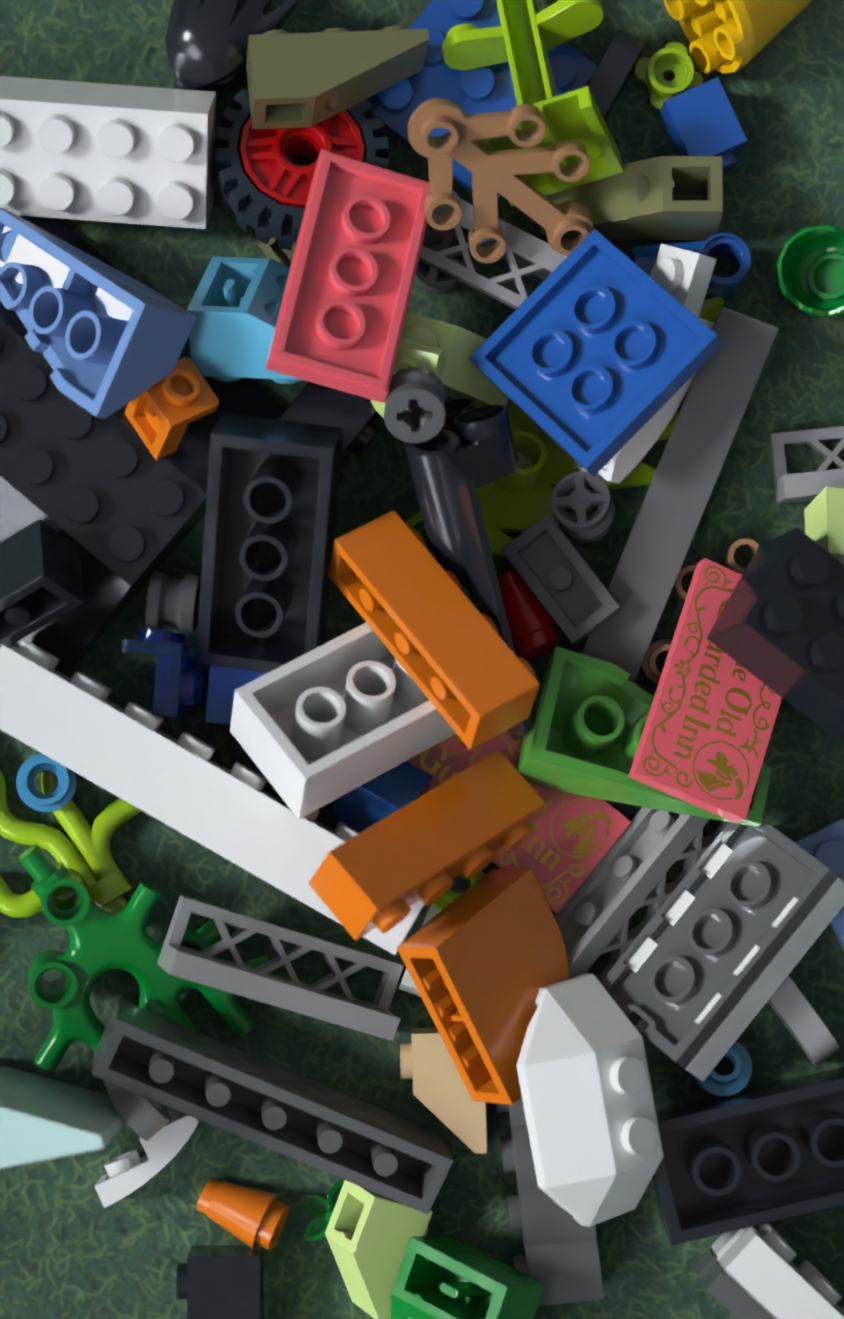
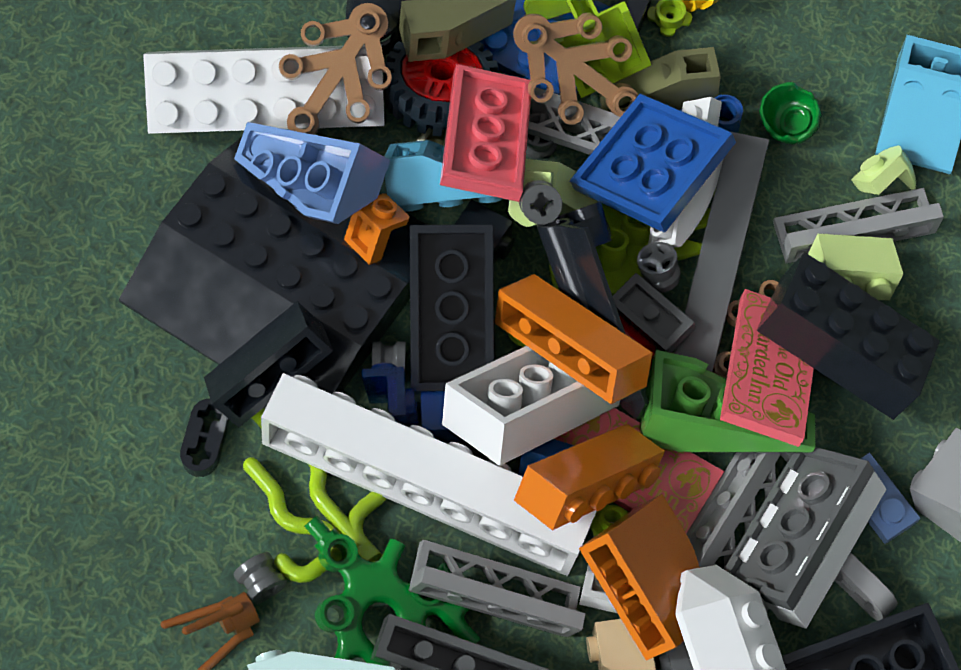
camera: 10 degrees left, 20 degrees down
(27, 788) = (319, 474): dark azure plate -> none
(142, 140) = (340, 64): none -> medium nougat plant
(704, 124) = (697, 31): blue brick -> none
(731, 1084) = (811, 635): dark azure plate -> none

